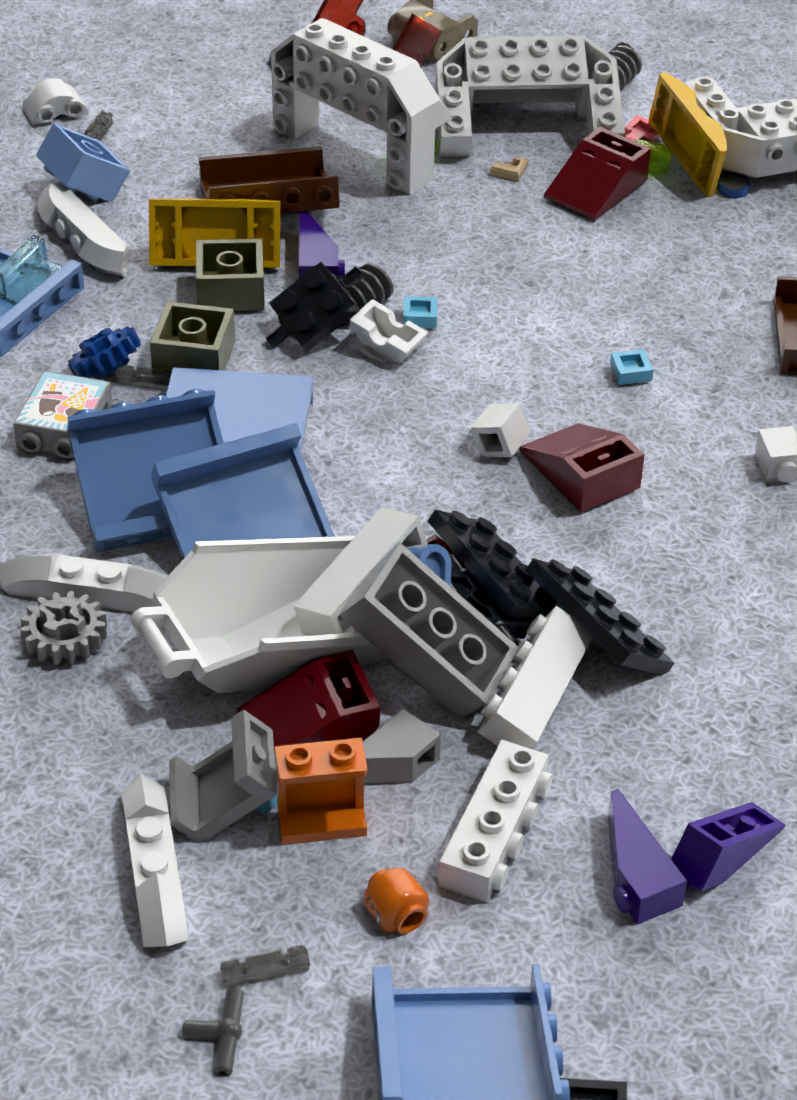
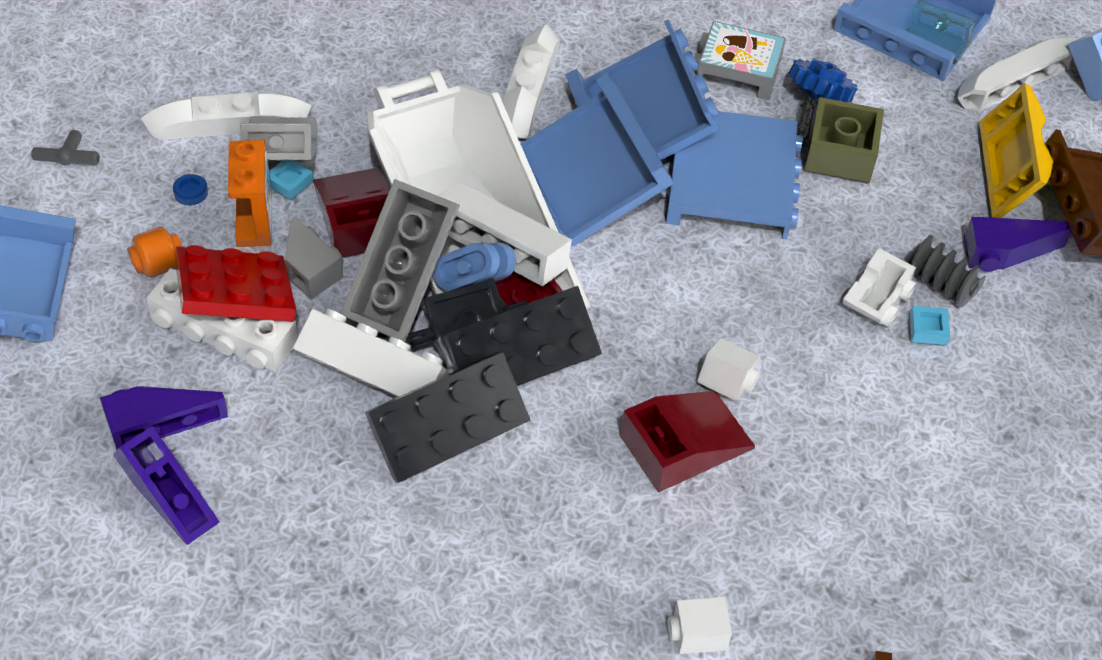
camera: 90 degrees right, 10 degrees up
(63, 627) = (476, 63): light grey gear -> none
(230, 273) = (955, 169): olive brick -> none
(264, 966) = (117, 177): clear smoke axle -> none
(280, 888) = (190, 189): none -> blue tile
(314, 306) = (903, 224): black plate -> none
(459, 796) = (234, 284): none -> red plate
(631, 366) = (853, 506): medium azure plate -> none

